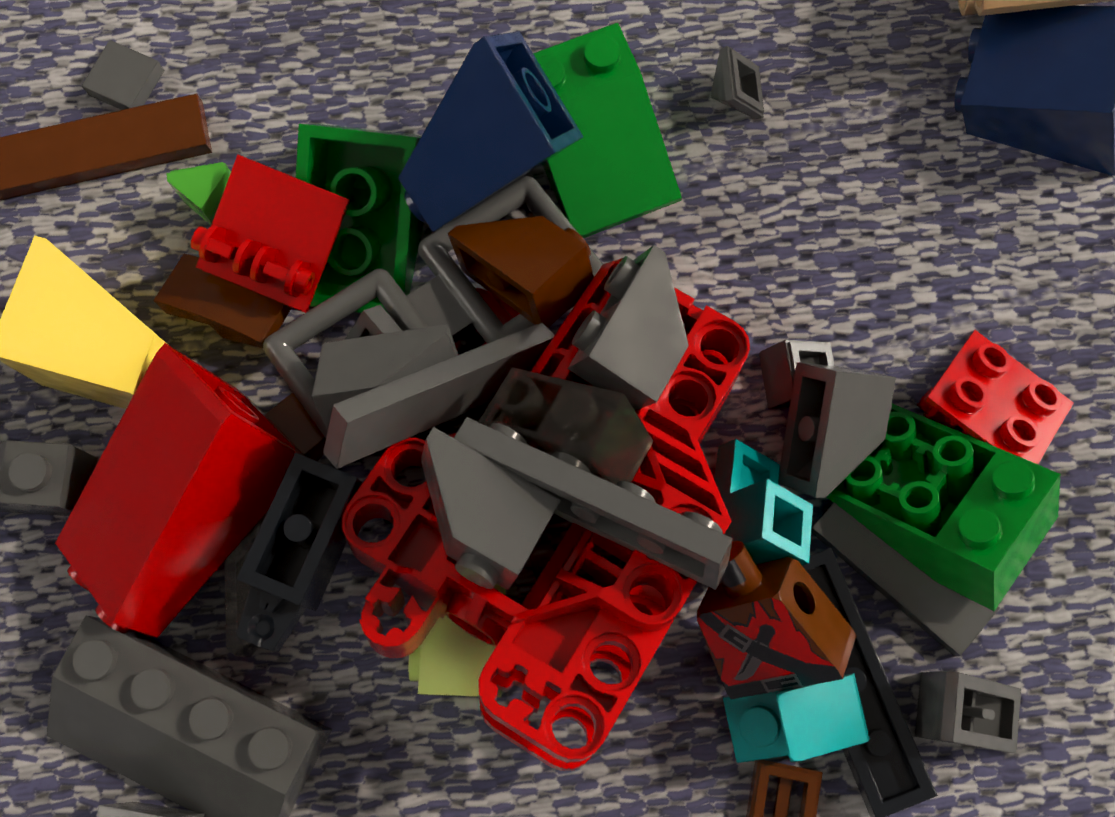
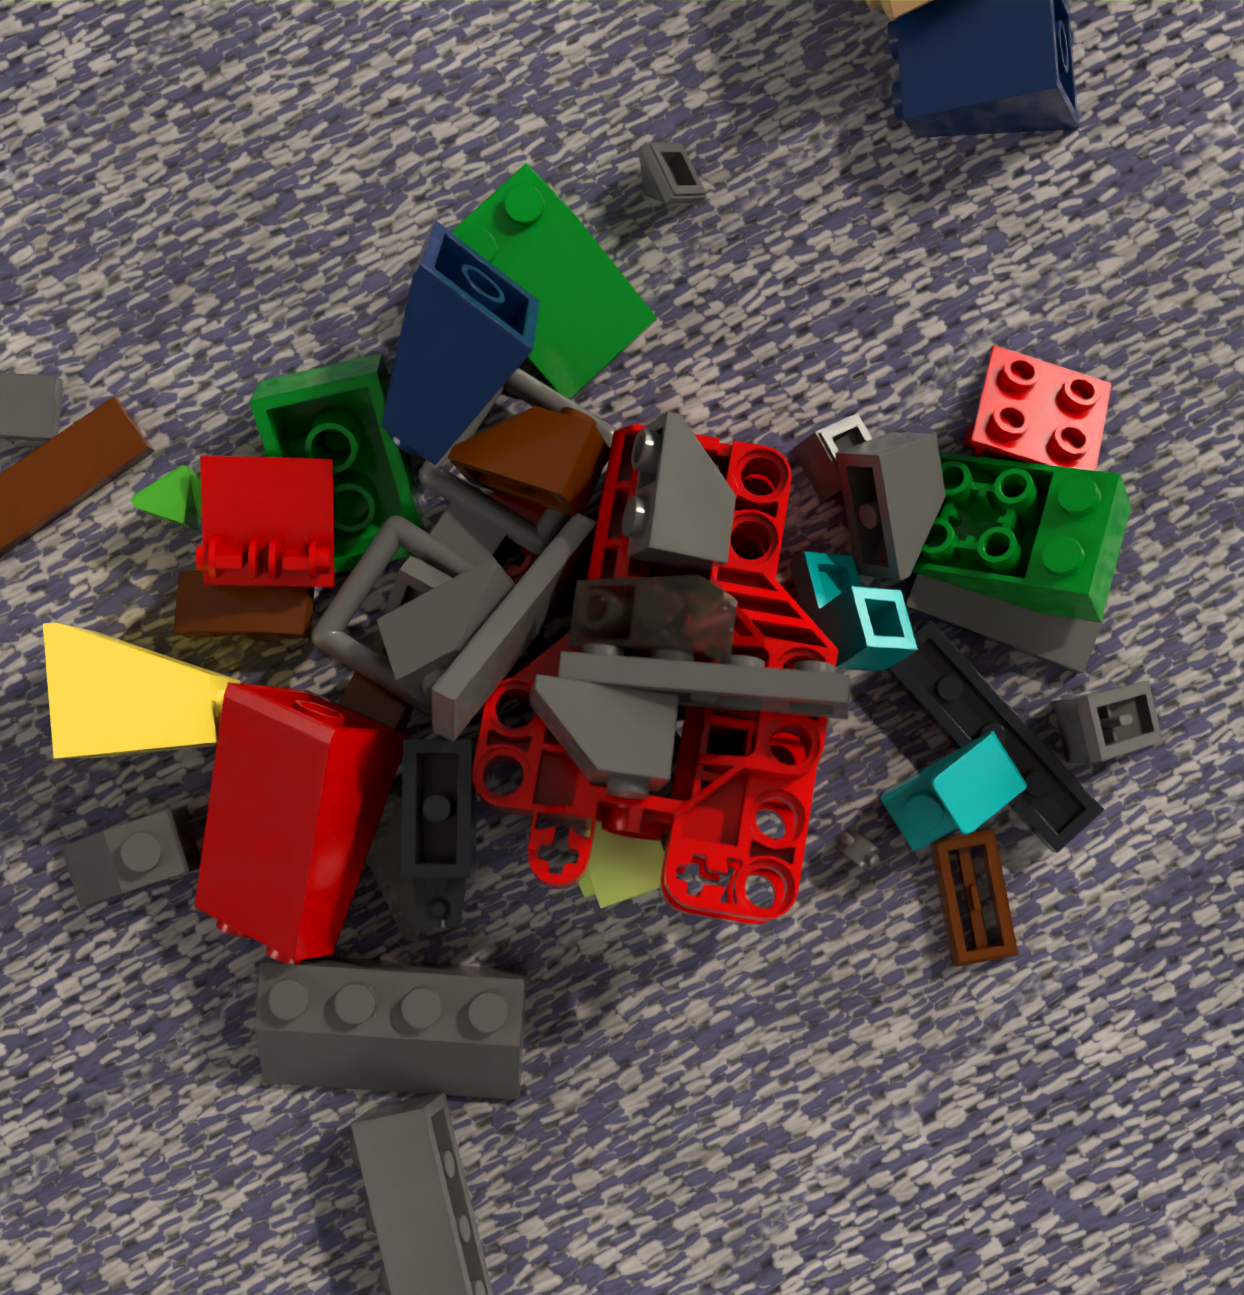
camera: 30 degrees left, 10 degrees up
(684, 739) = (858, 849): none -> dark grey piece
(772, 627) = (906, 721): torso -> none

